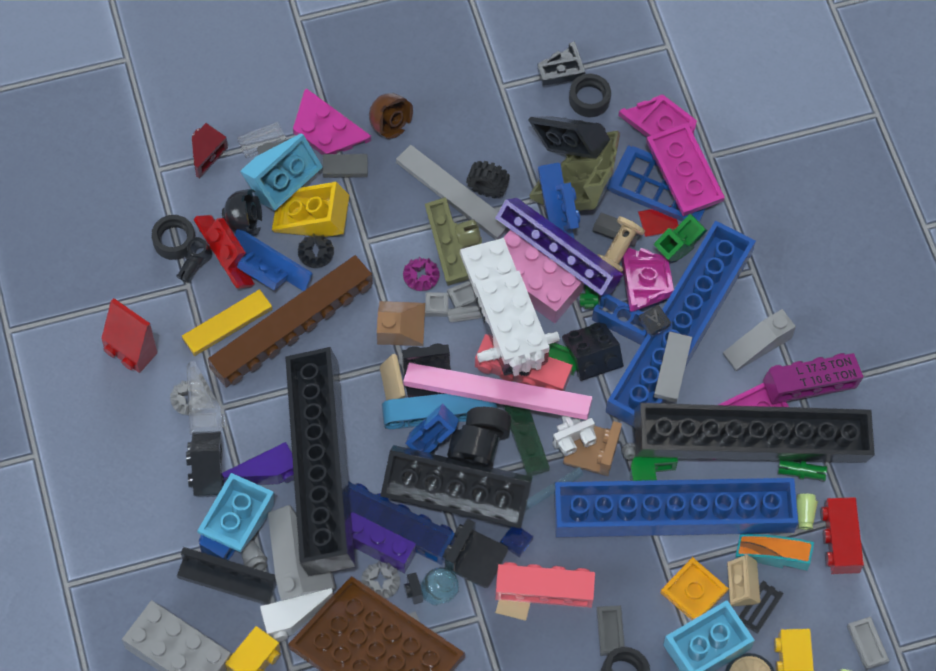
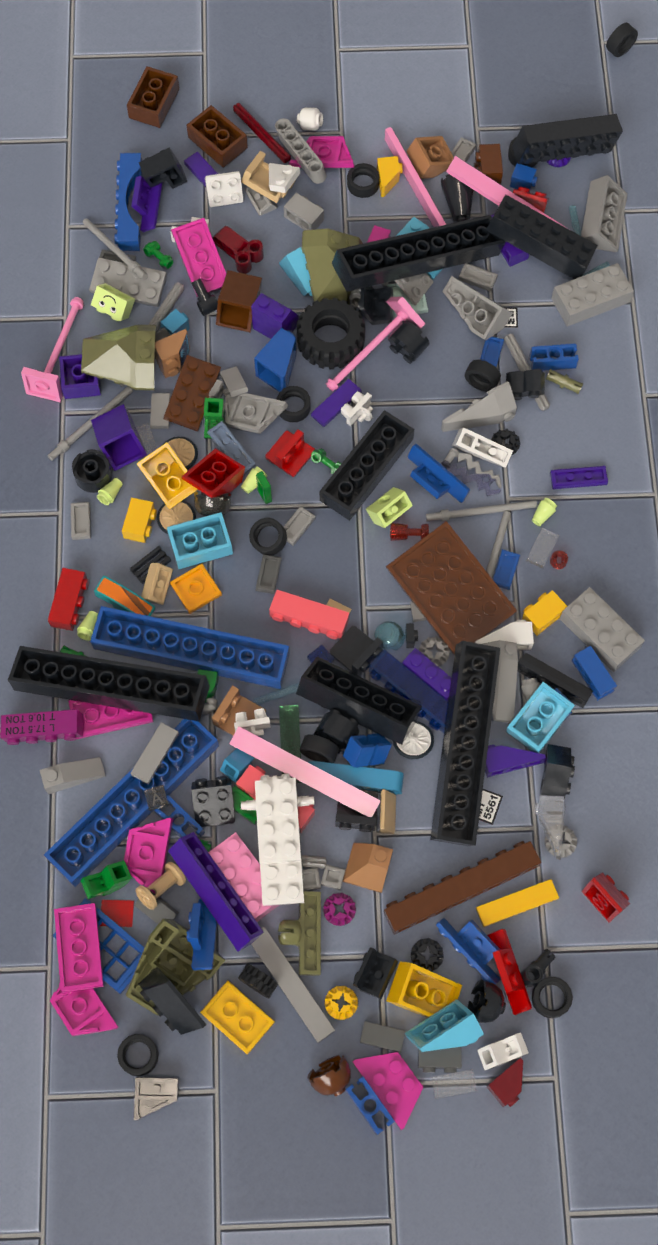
camera: 165 degrees left, 5 degrees up
(179, 594) = (594, 673): none -> blue piece
(218, 174) = (503, 1051): none -> white brick
(278, 419) = (489, 806): none -> sticker
(341, 92) = (371, 1096): none -> blue piece
(366, 217) = (375, 973): none -> black bracket
(372, 468) = (418, 742): none -> white wheel
(387, 190) = (347, 1010): none -> yellow gear
(501, 148) = (237, 1017): none -> yellow tile
(579, 384) = (236, 764): none -> dark azure brick

